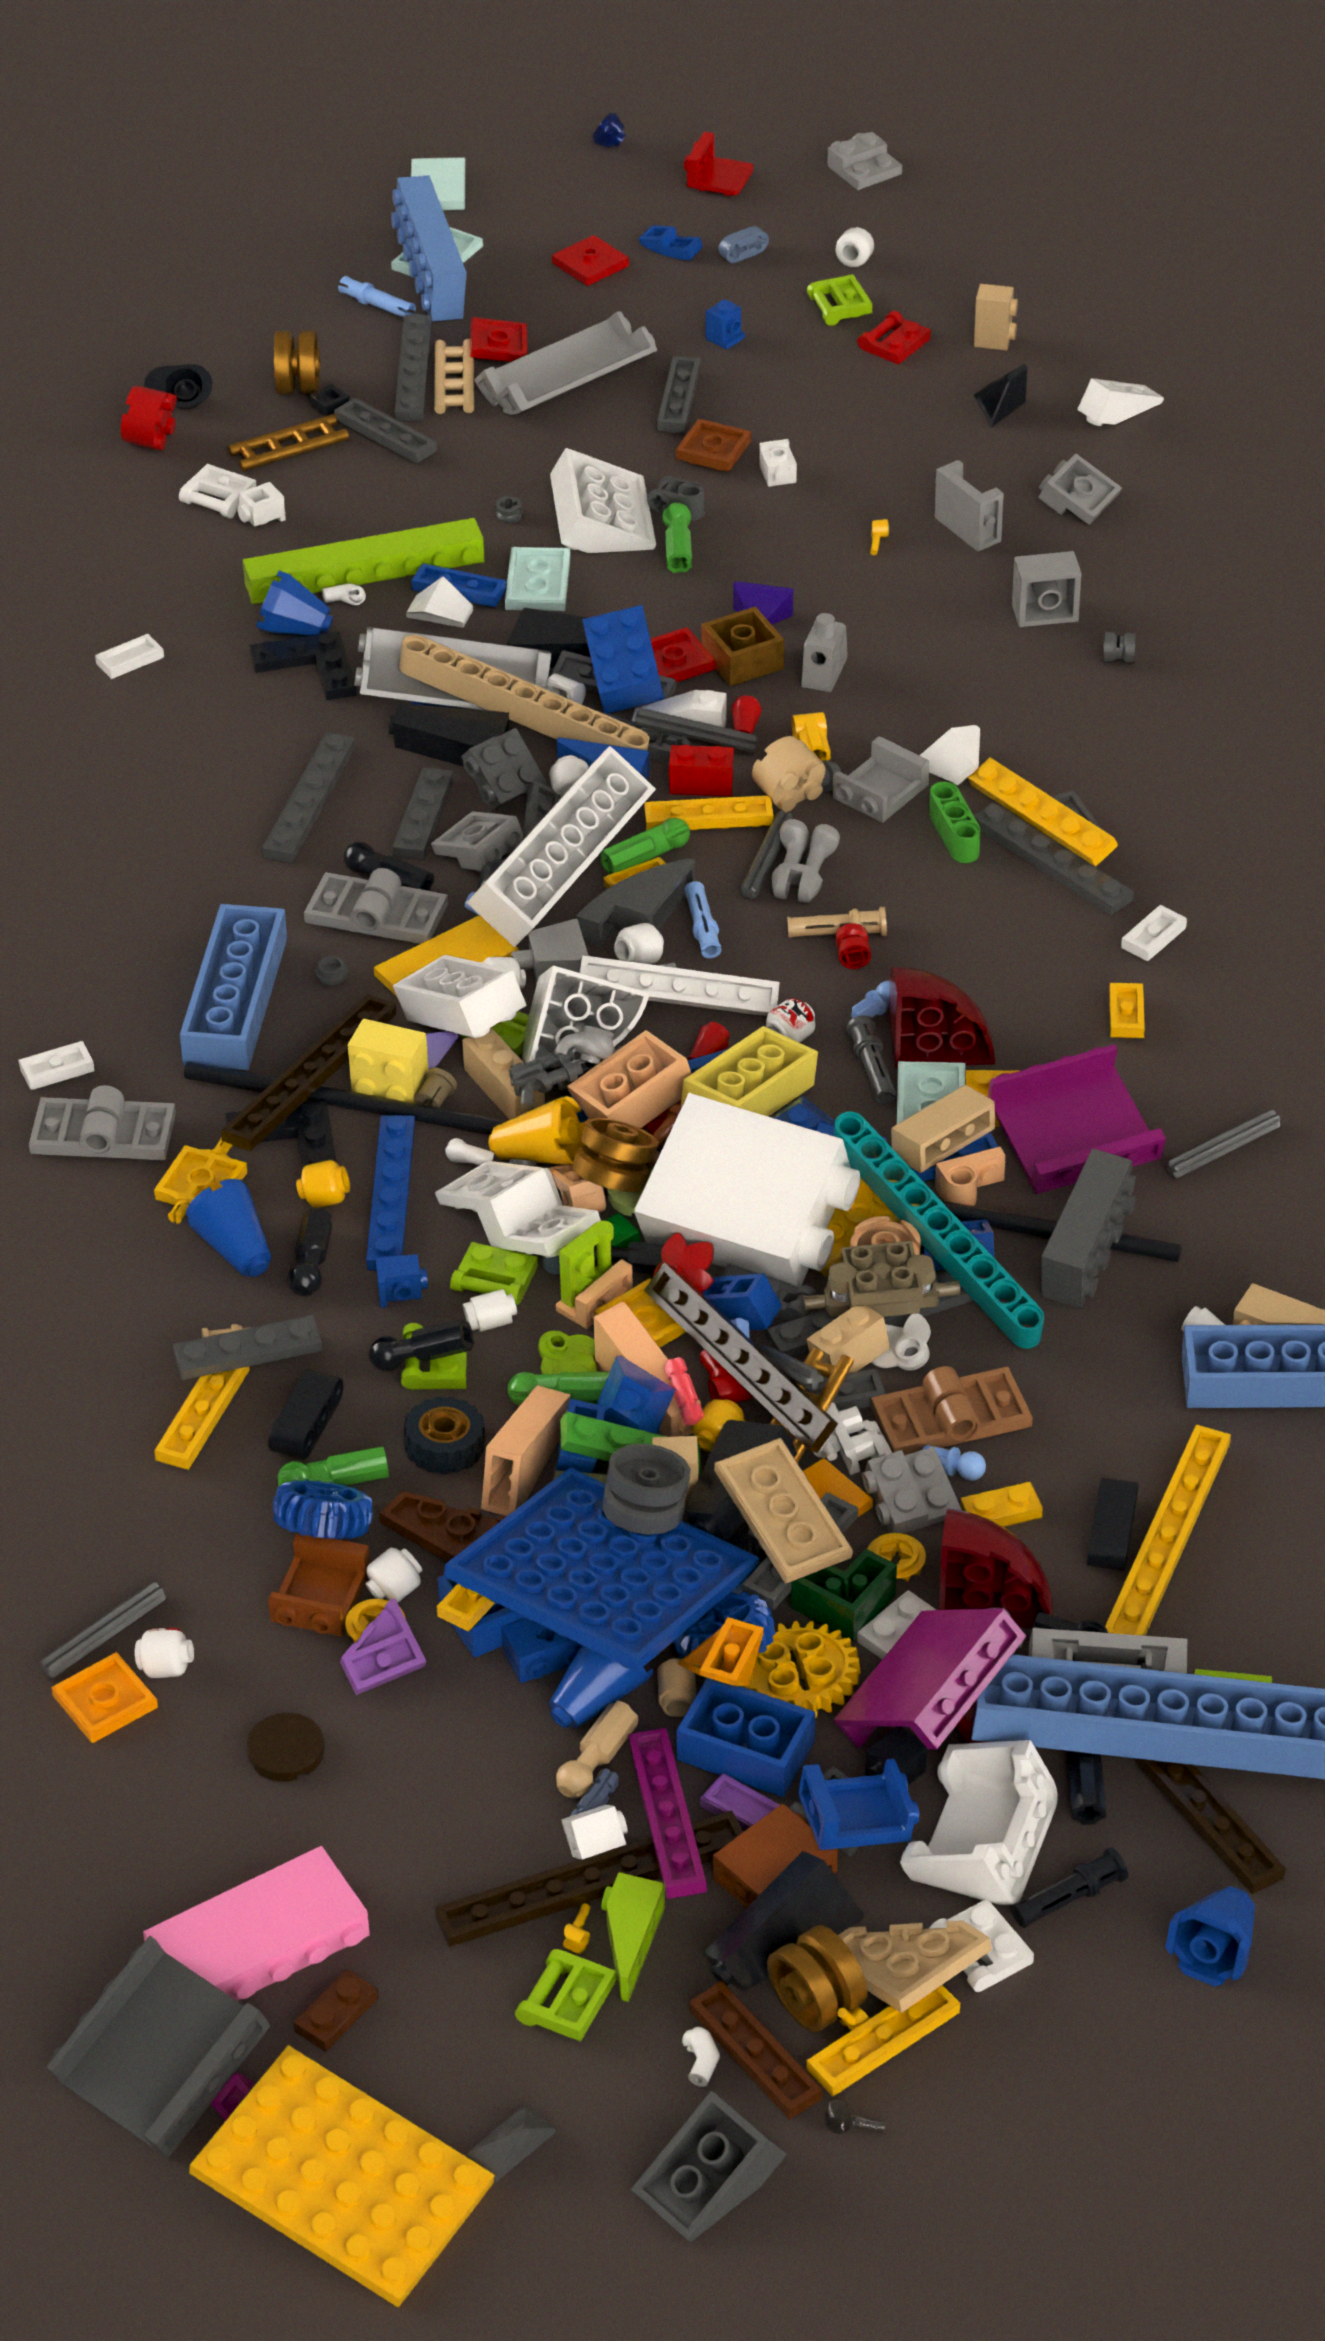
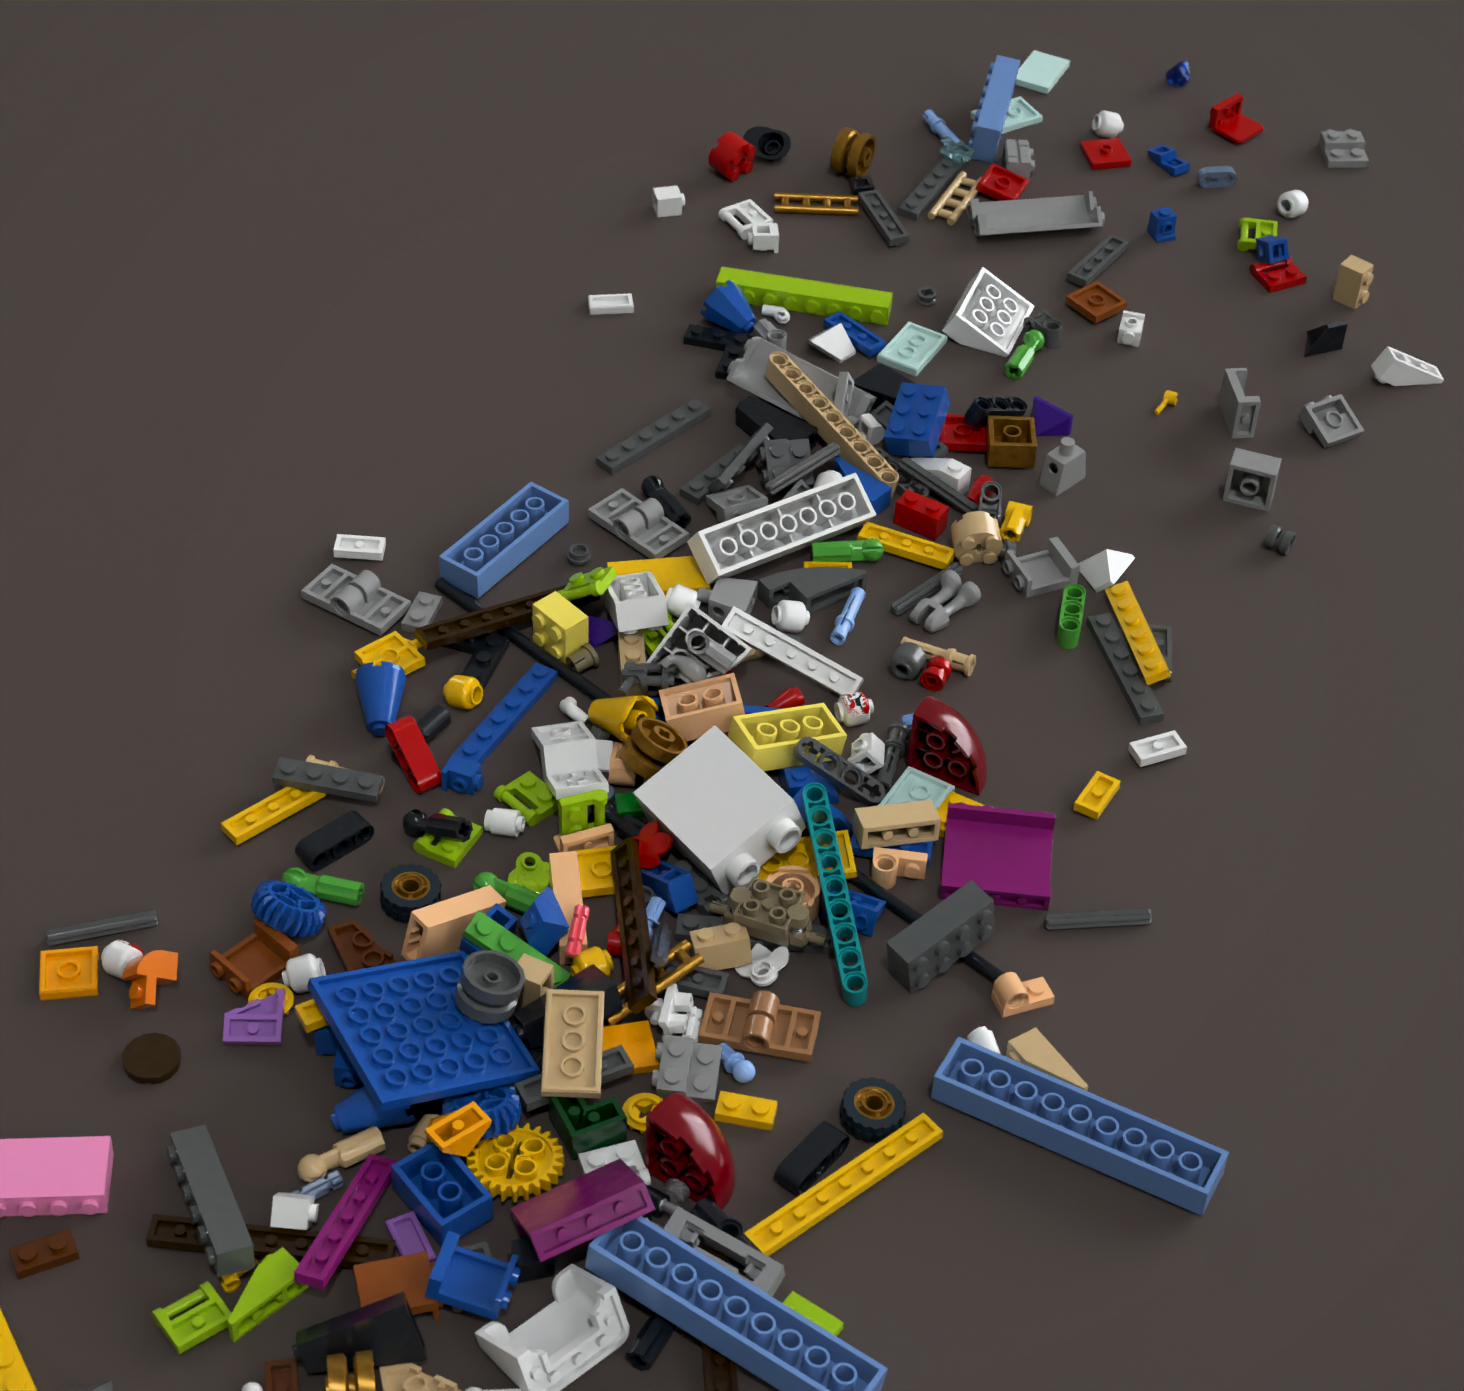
camera: 25 degrees right, 0 degrees up
(105, 502) = (668, 201): none -> white brick
(194, 1114) = (422, 611): none -> light grey plate
(214, 1654) = (146, 972): none -> orange brick
(329, 1276) = (413, 754): none -> red beam
(356, 621) = (768, 332): none -> light grey piece
(388, 996) = (588, 584): none -> lime plate
(421, 317) = (957, 152): none -> clear light blue plate
(445, 782) = (736, 464): none -> dark grey plate
(494, 299) = (1018, 157): none -> light grey brick
(497, 1860) = (211, 1201): none -> dark grey brick
(510, 653) = (844, 390): none -> light grey plate
(530, 767) = (802, 469): none -> dark grey axle
(570, 222) = (1107, 124): none -> white head
(609, 1015) = (713, 653): none -> light grey piece
(690, 614) = (994, 406): none -> black beam
(770, 730) = (991, 505): none -> dark grey piece
(812, 943) = (907, 660): none -> dark grey head
(836, 1092) = (841, 766): none -> dark grey beam
(840, 1059) = (866, 747): none -> white brick
(874, 309) = (1272, 249): none -> blue brick
(1139, 1445) = (872, 1109): none -> black wheel
(1199, 1261) = (1015, 997): none -> light nougat plate

